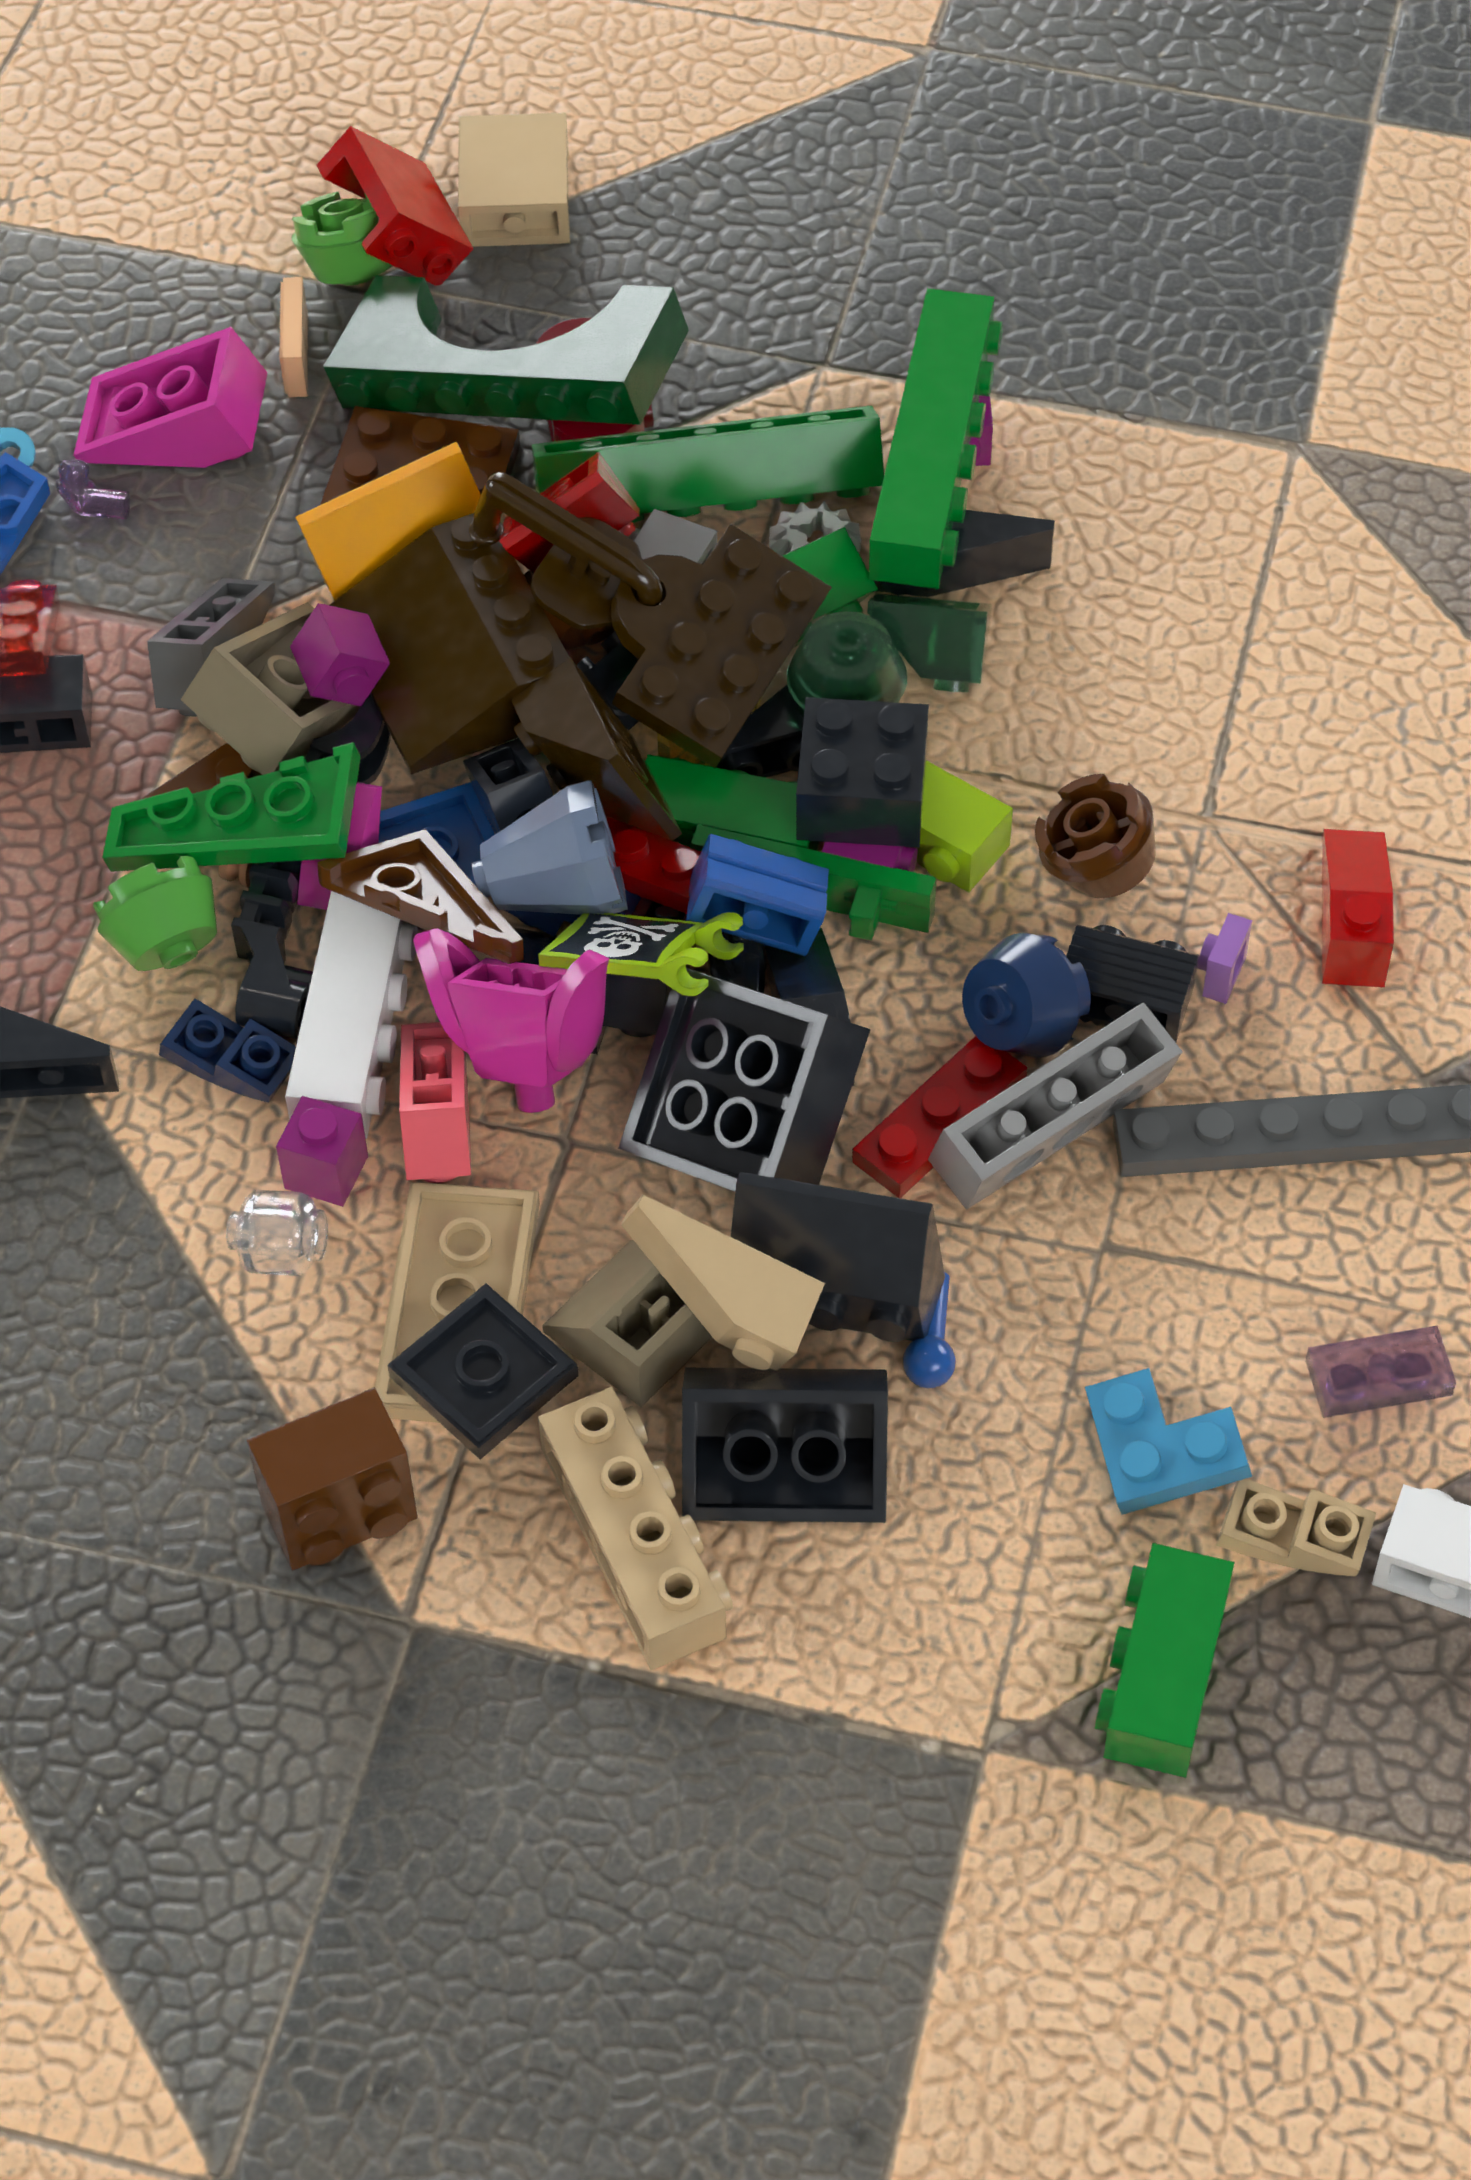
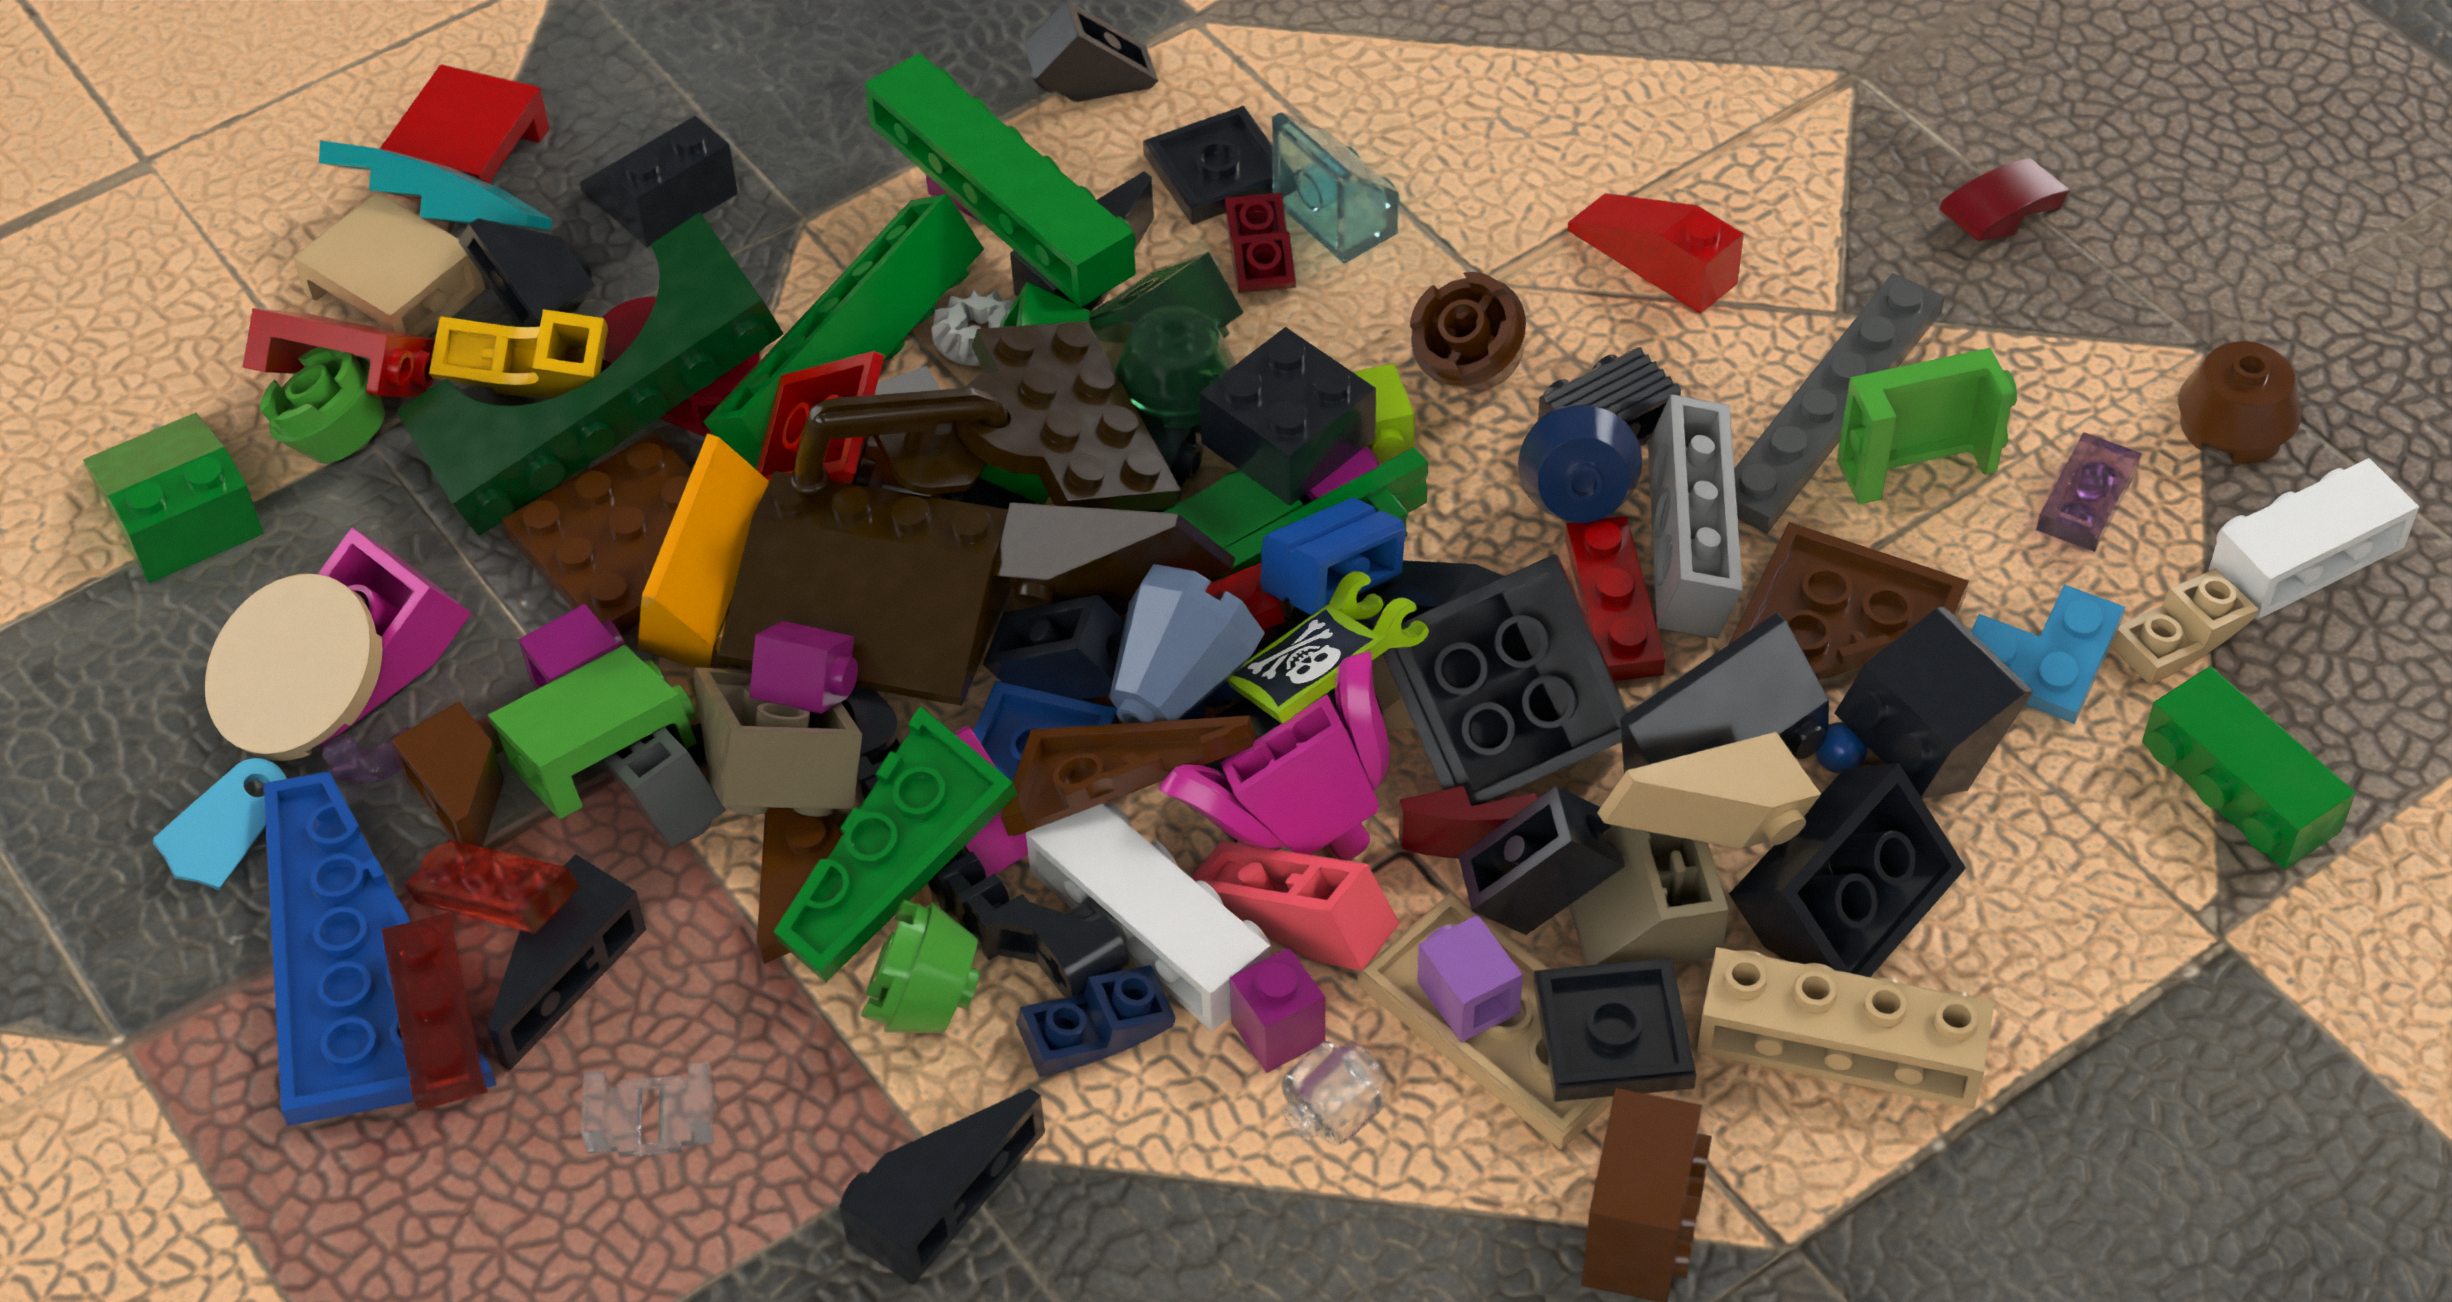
camera: 50 degrees left, 5 degrees down
(107, 391) = (292, 667): none -> tan tile
(107, 547) = (454, 770): none -> reddish brown slope
(204, 577) = (586, 720): none -> bright green panel
(206, 222) = (175, 496): none -> green slope
(263, 536) = (567, 645): none -> magenta brick
(294, 337) = (379, 511): light nougat tile -> none
(444, 1246) = (1469, 977): none -> medium lavender brick
(490, 299) = (521, 360): none -> yellow arch
(579, 252) = (527, 269): none -> black slope
(579, 1218) = (1539, 861): none -> black brick
(600, 1154) = (1447, 823): none -> dark red slope
(602, 143) = (444, 191): none -> teal slope
(680, 116) = (469, 121): none -> red panel
(762, 261) = (665, 181): none -> black slope
(991, 1387) = (1934, 704): none -> black slope
(1067, 1268) = (1845, 598): none -> reddish brown plate
(1084, 651) = (1259, 243): none -> dark red slope
(1144, 566) = (1212, 162): none -> black tile
(1161, 408) = (1087, 57): none -> black slope
(1177, 647) = (1331, 189): none -> clear light blue slope
(1224, 957) = (1641, 329): medium lavender plate -> none
(1313, 1190) = (1924, 415): none -> bright green panel

